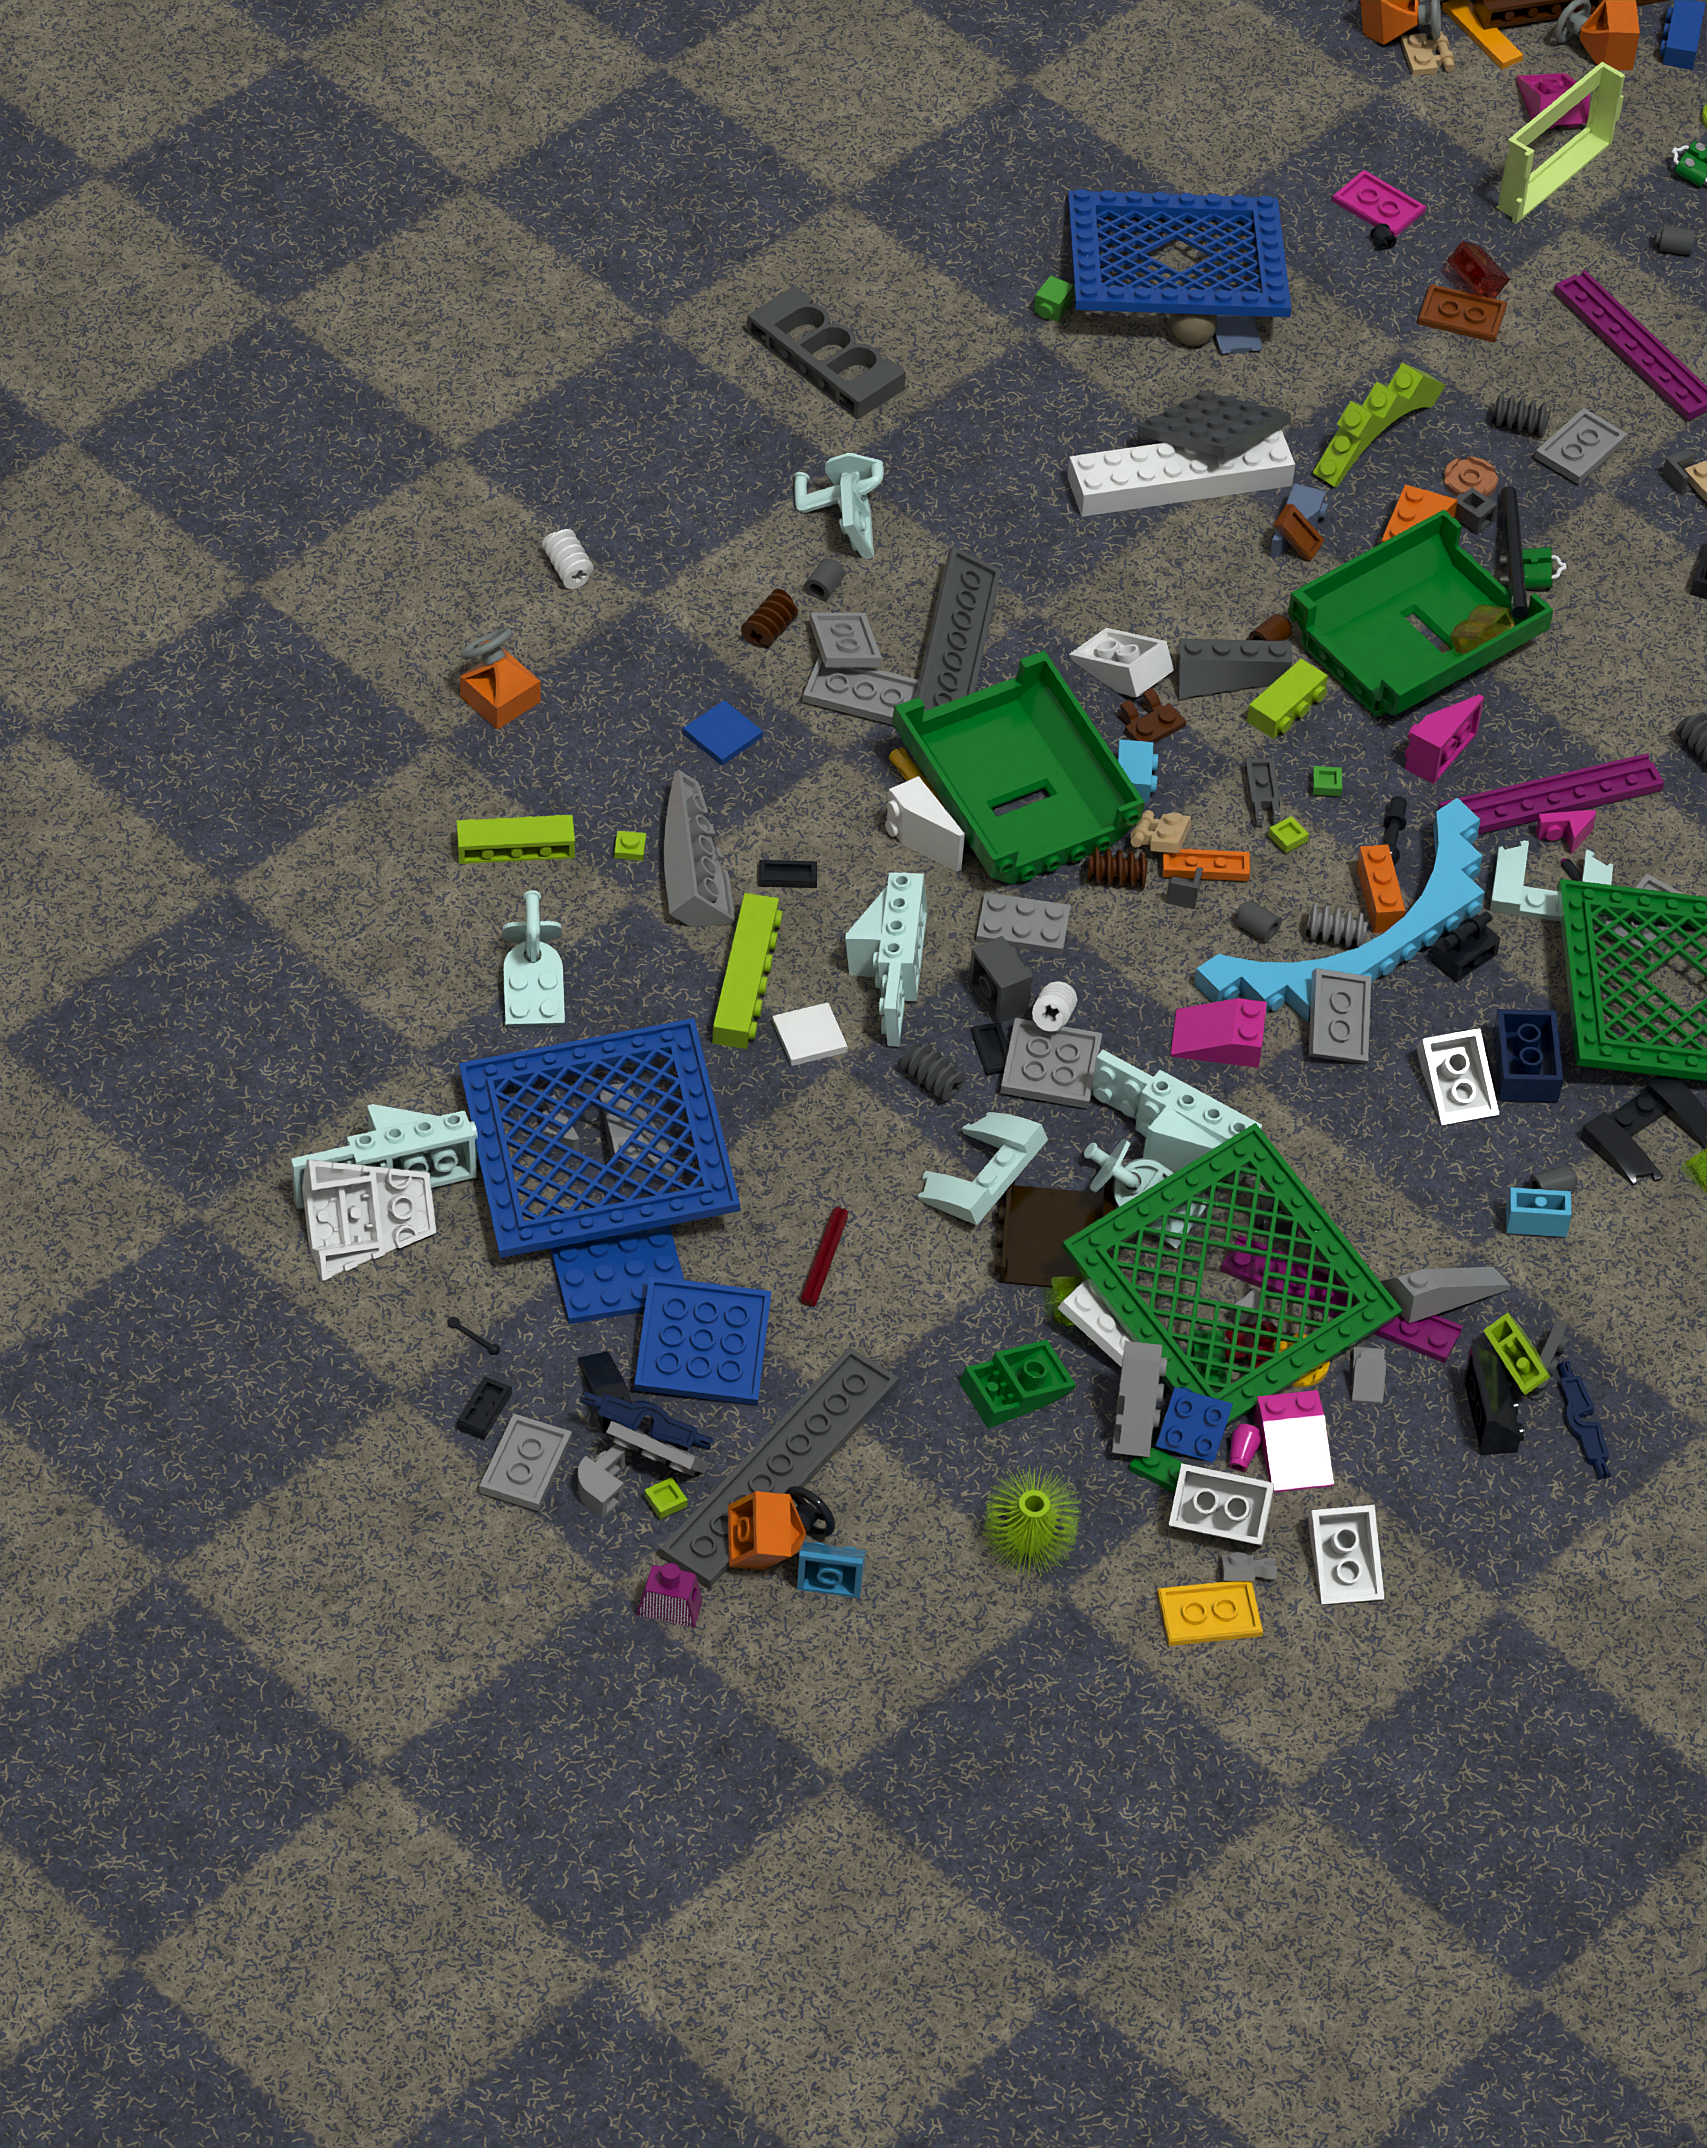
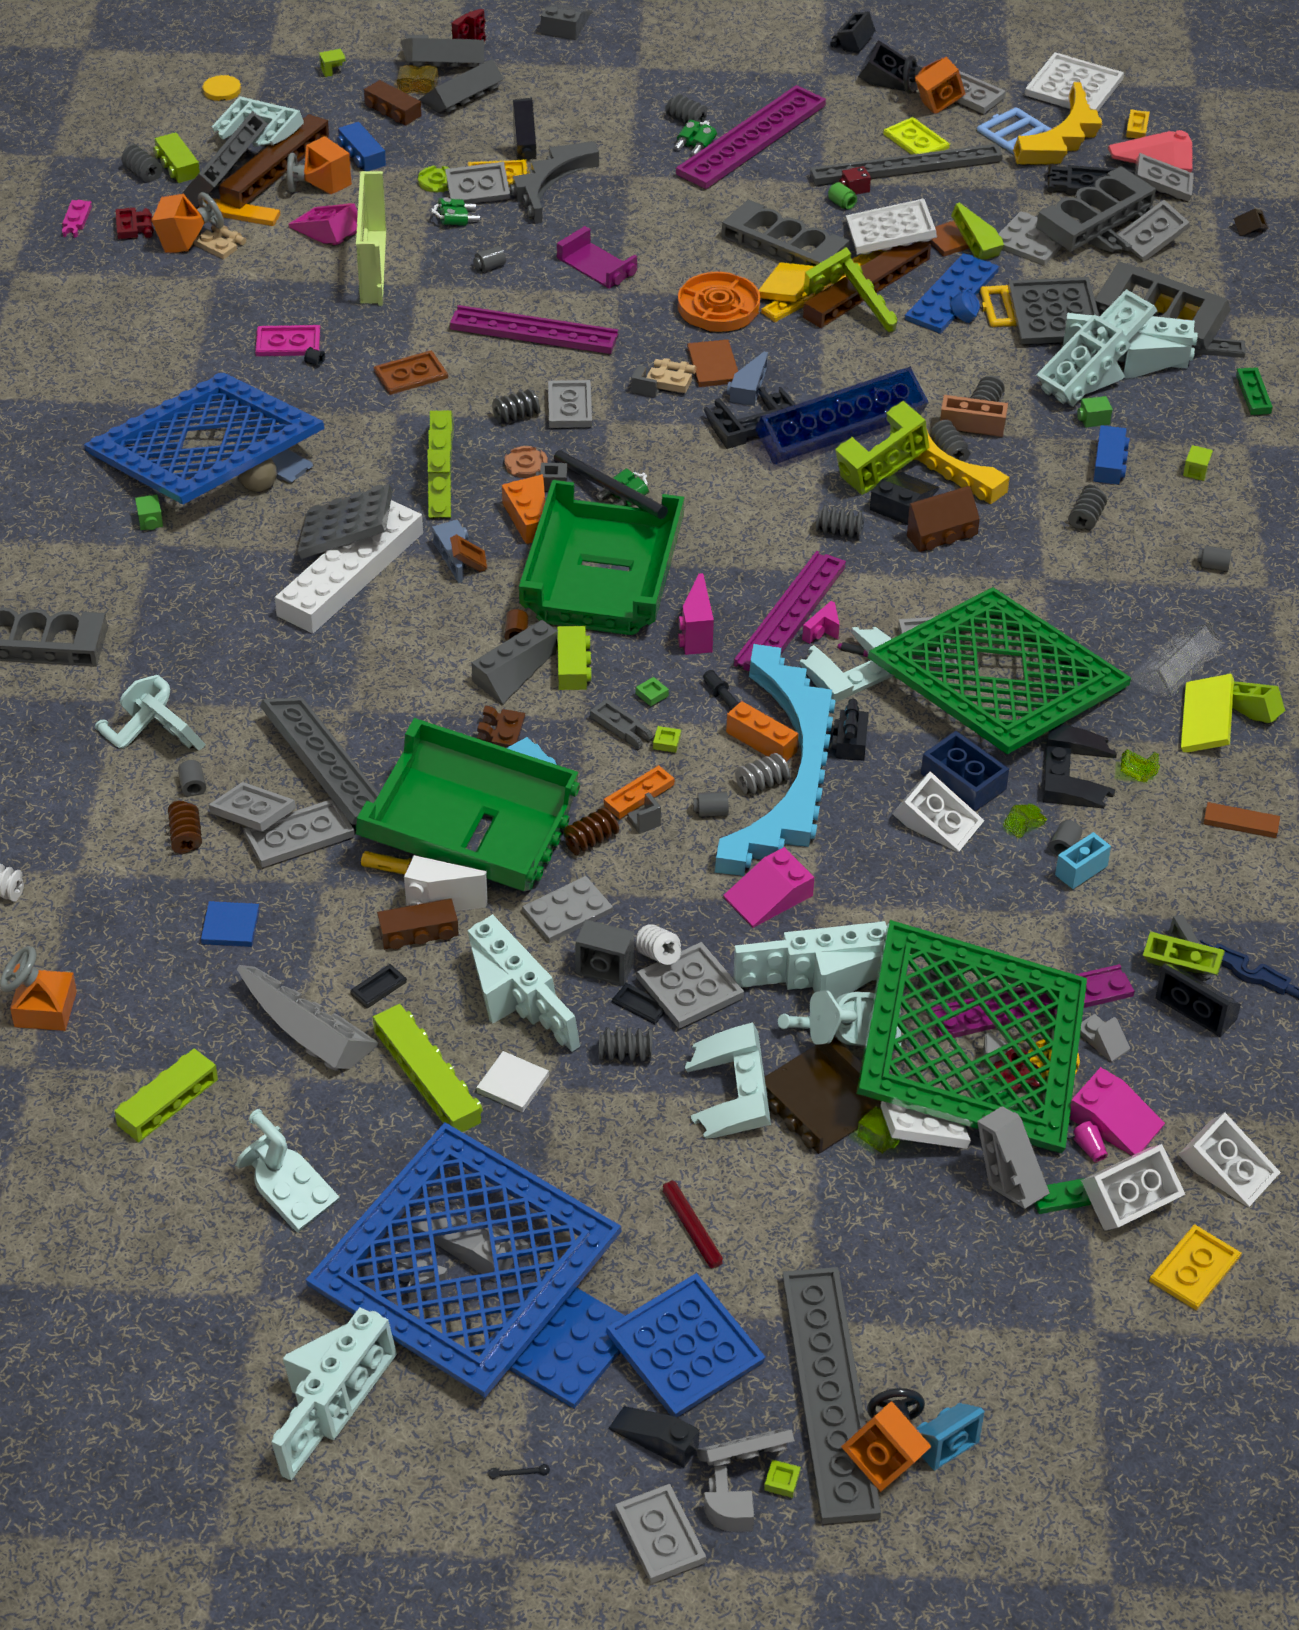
camera: 40 degrees left, 5 degrees down
(363, 1212) = (352, 1445): white wedge -> none
(484, 1407) = (587, 1517): black plate -> none
(630, 845) = (249, 1043): lime plate -> none
(631, 1414) = (704, 1434): dark blue piece -> none
(671, 1596) = (873, 1545): magenta torso -> none
(875, 842) = (417, 924): none -> reddish brown brick
(1016, 1382) = (910, 1211): green slope -> none
(1031, 1521) = (1038, 1294): lime piece -> none
(1124, 660) = (445, 701): white slope -> none
(1161, 834) = (594, 789): tan plate -> none
(1194, 1424) = (1054, 1148): blue hinge -> none
(1243, 1567) = (1181, 1221): light grey plate -> none
(1340, 1016) = (834, 825): light grey plate -> none
(1442, 1289) = (1084, 948): light grey wedge -> none
(1478, 269) = (396, 340): clear red brick -> none
(1481, 626) = (645, 539): clear yellow brick -> none
(1538, 1137) = (1023, 817): none -> clear neon green bracket

